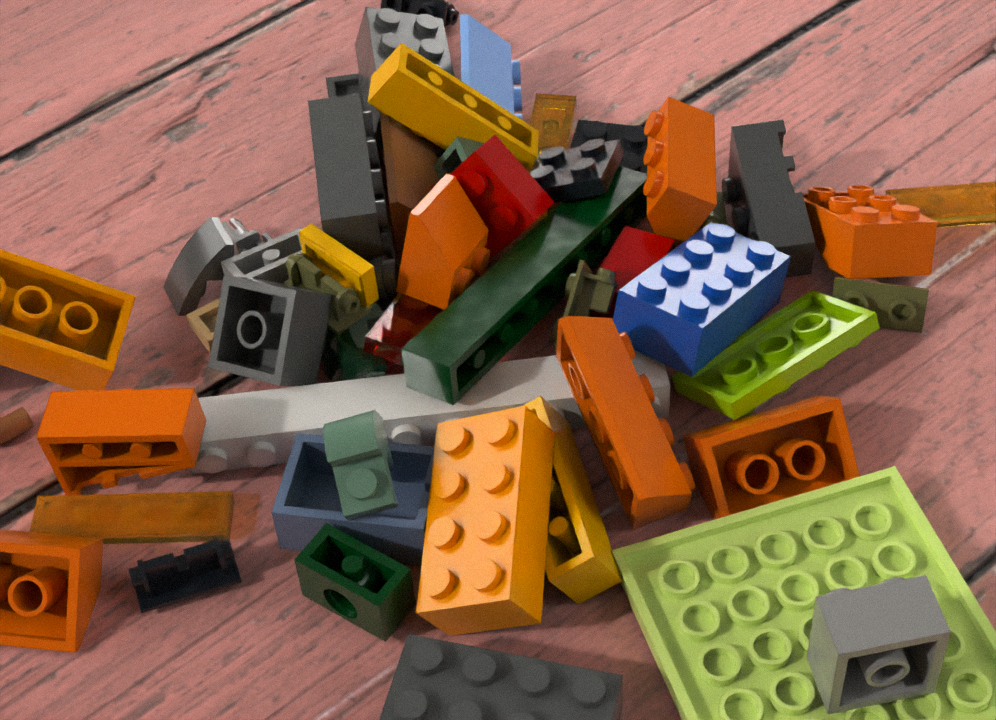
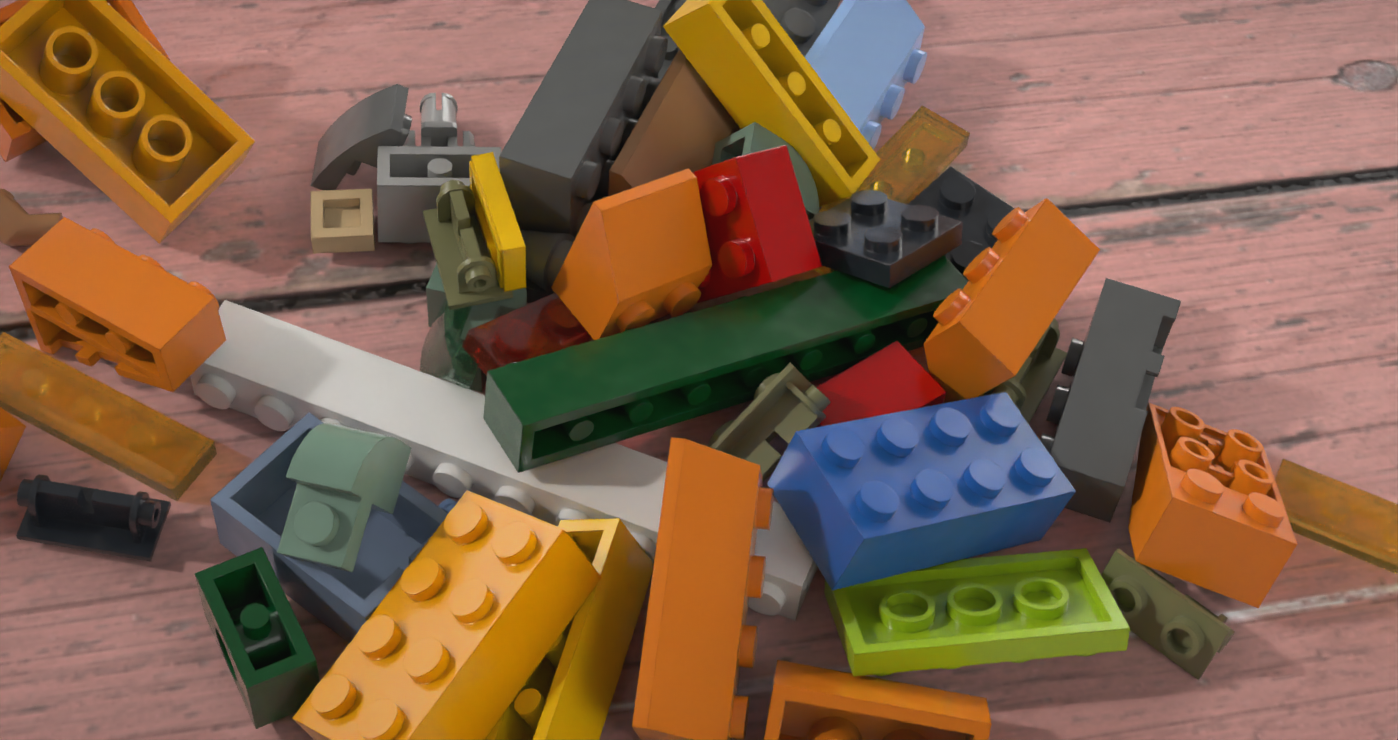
camera: 20 degrees right, 5 degrees up
(269, 331) = (372, 265): dark grey brick -> none

